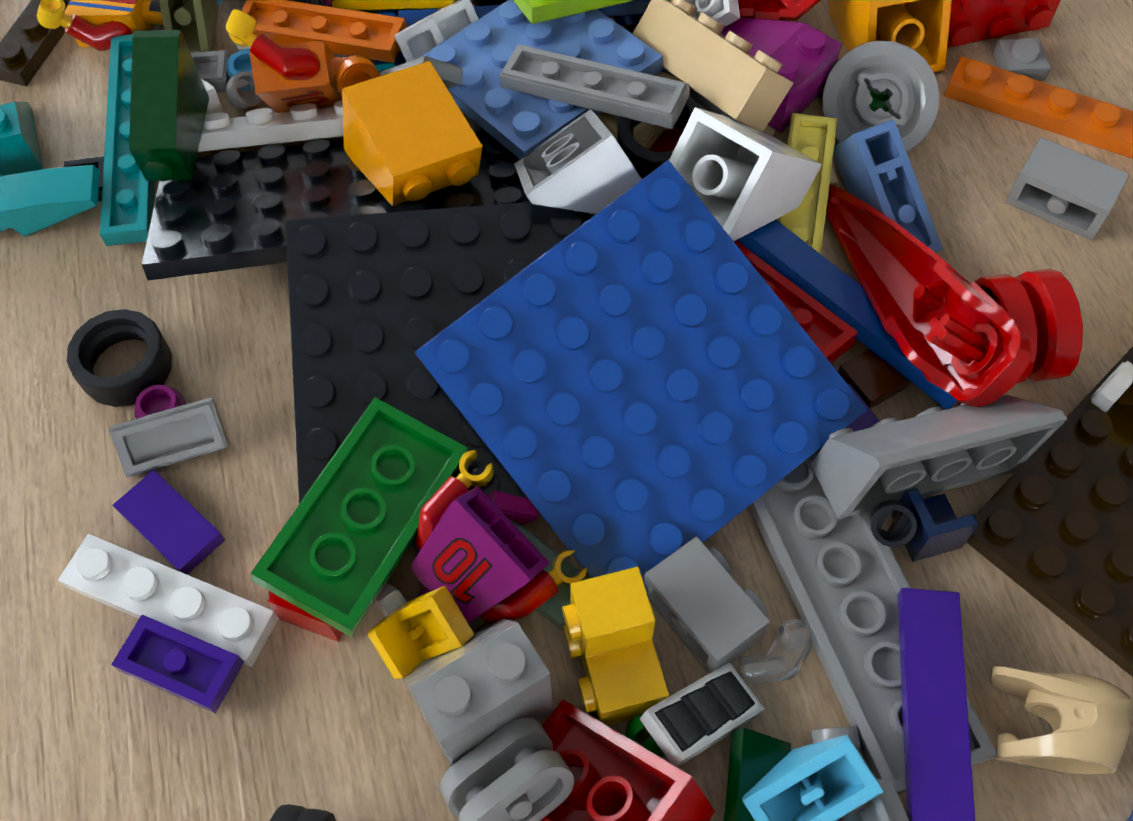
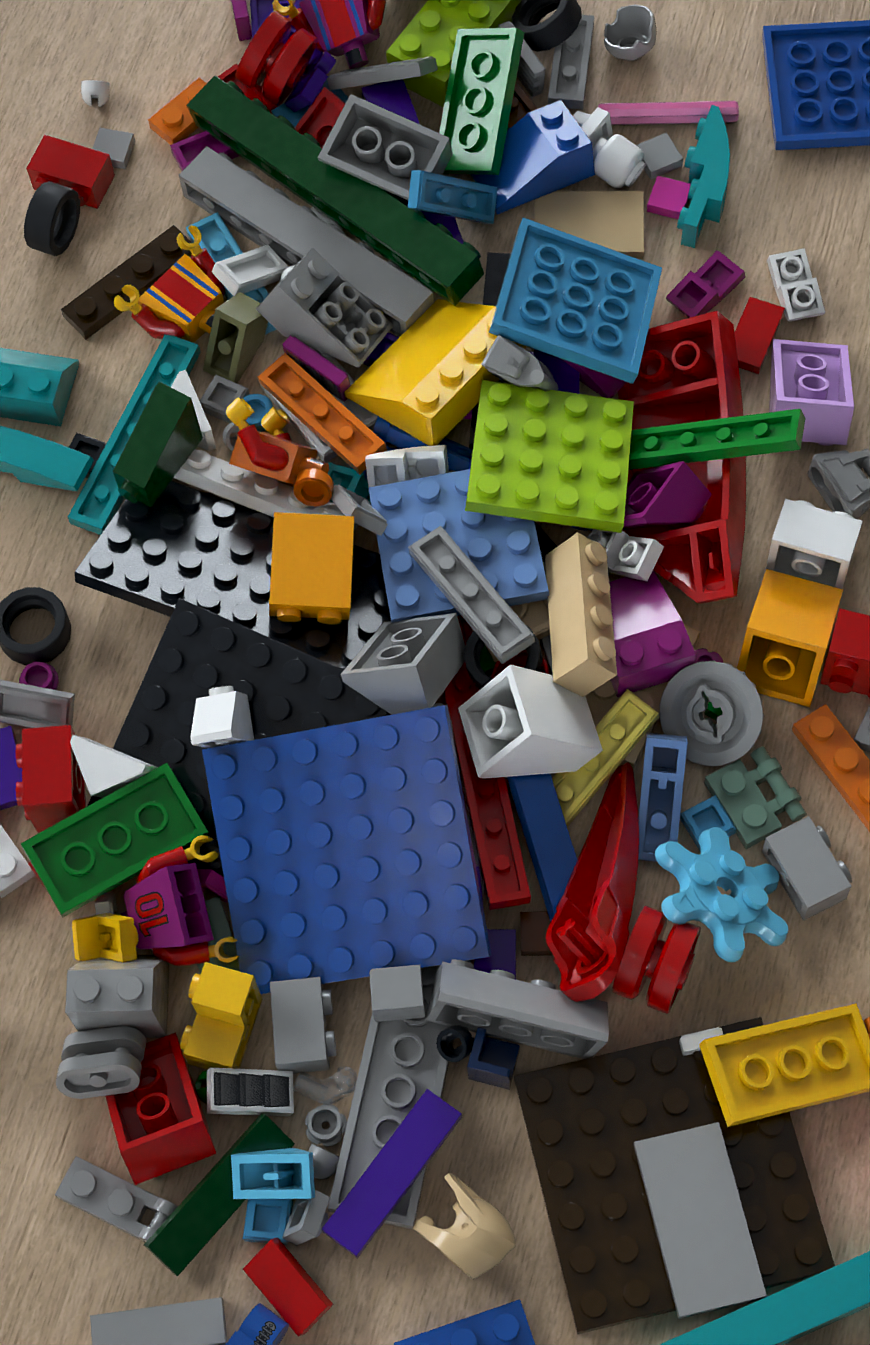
camera: 35 degrees right, 5 degrees up
(235, 488) = (51, 776): none -> red brick
(305, 438) = (105, 767): none -> white slope
(417, 306) = (221, 718): none -> white slope
(799, 501) = (397, 993): none -> light grey panel
(818, 690) = (317, 1117): none -> light grey plate
(945, 200) = (706, 816): none -> dark azure tile
(962, 169) = (745, 802): none -> sand green plate
(1029, 236) = (723, 914): none -> medium azure plate

